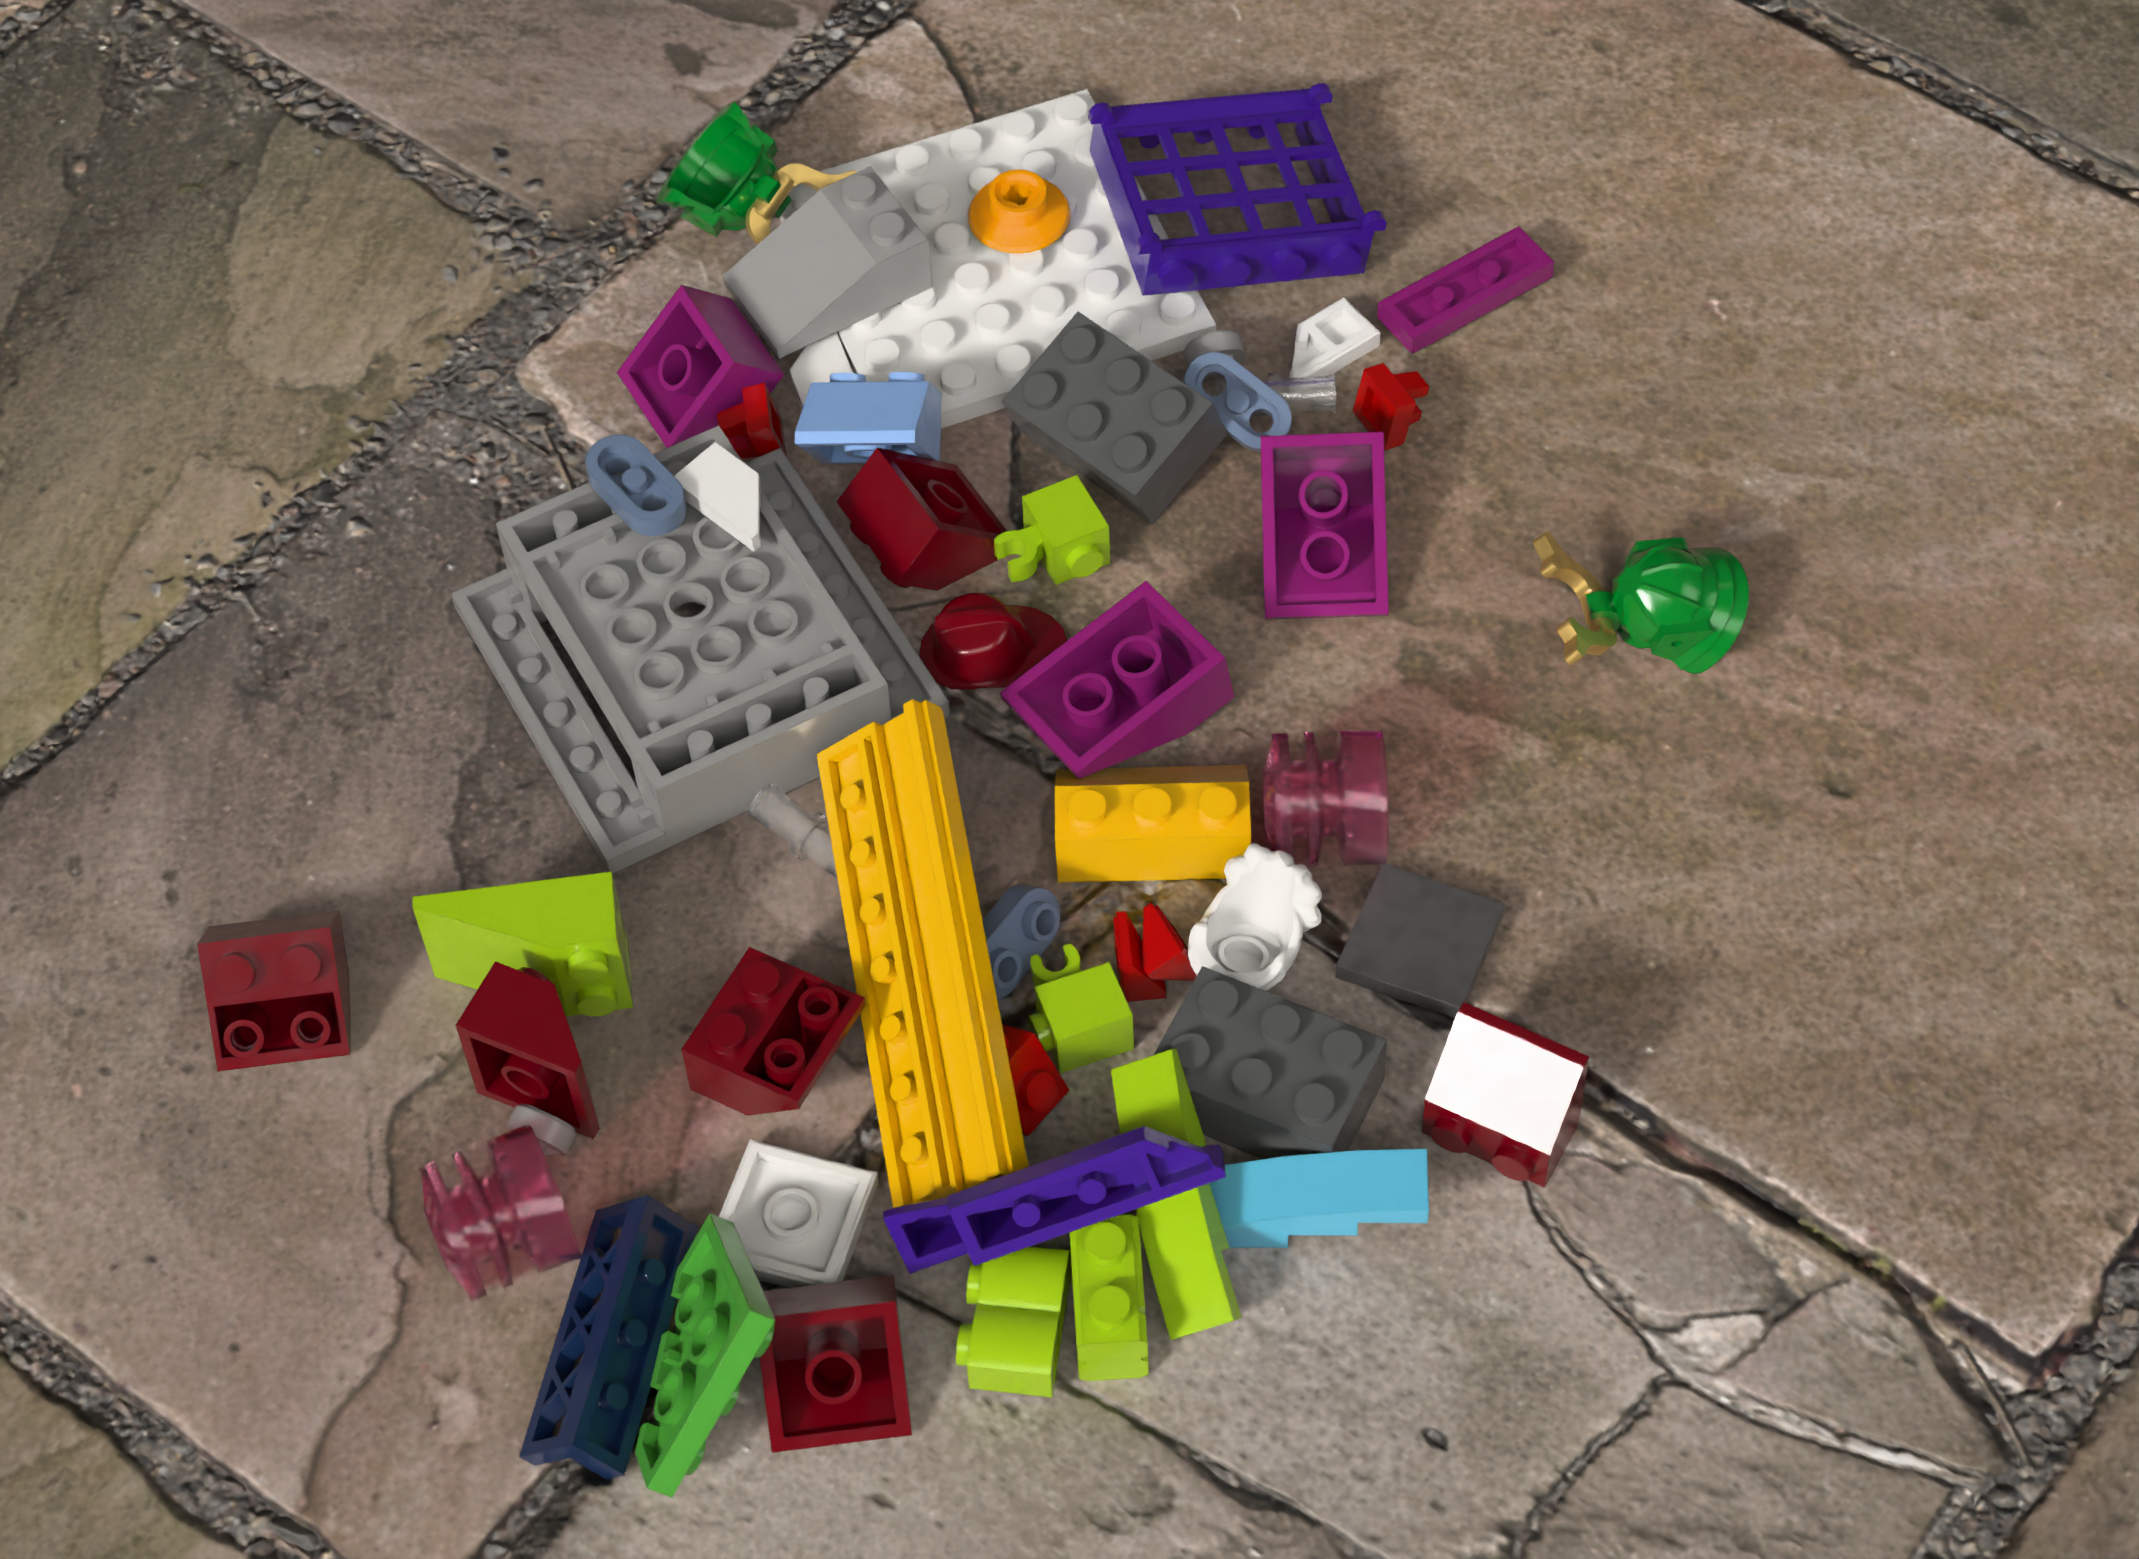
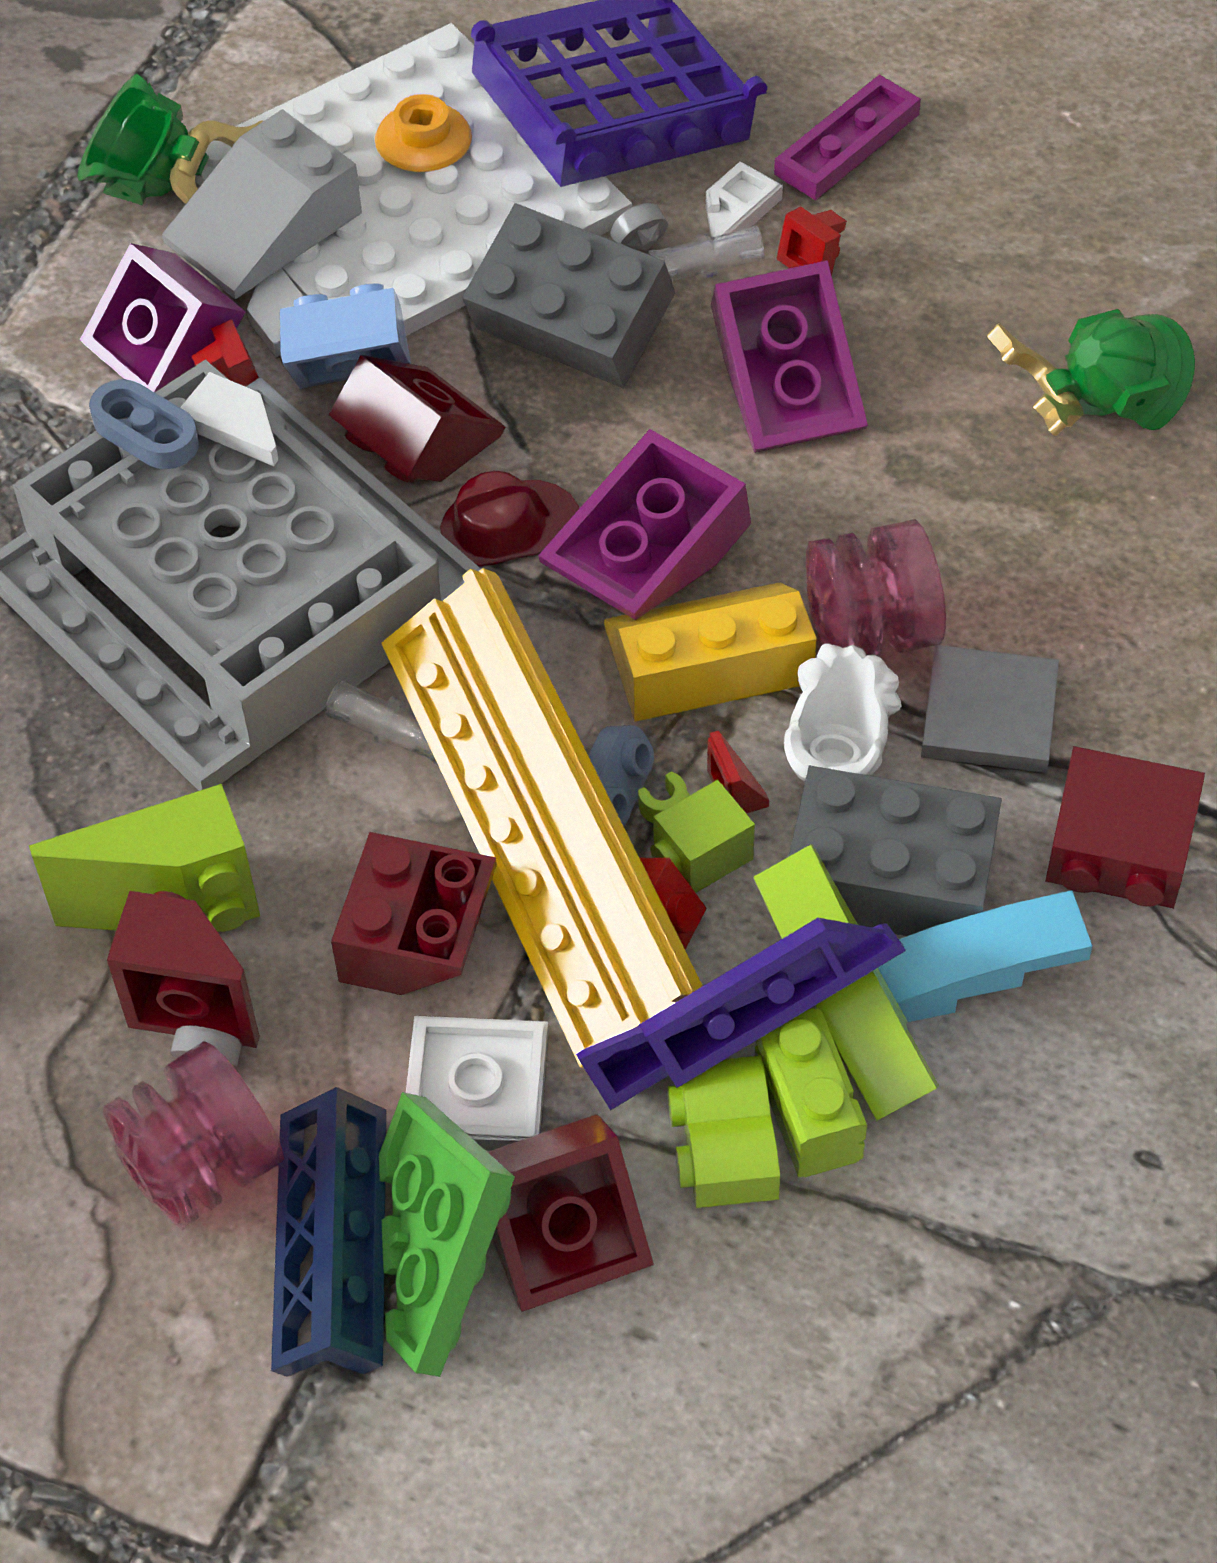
camera: 15 degrees left, 0 degrees up
(1060, 531) = (545, 406): lime brick -> none
(1163, 948) = (762, 760): red slope -> none
(1241, 398) = (683, 257): sand blue plate -> none

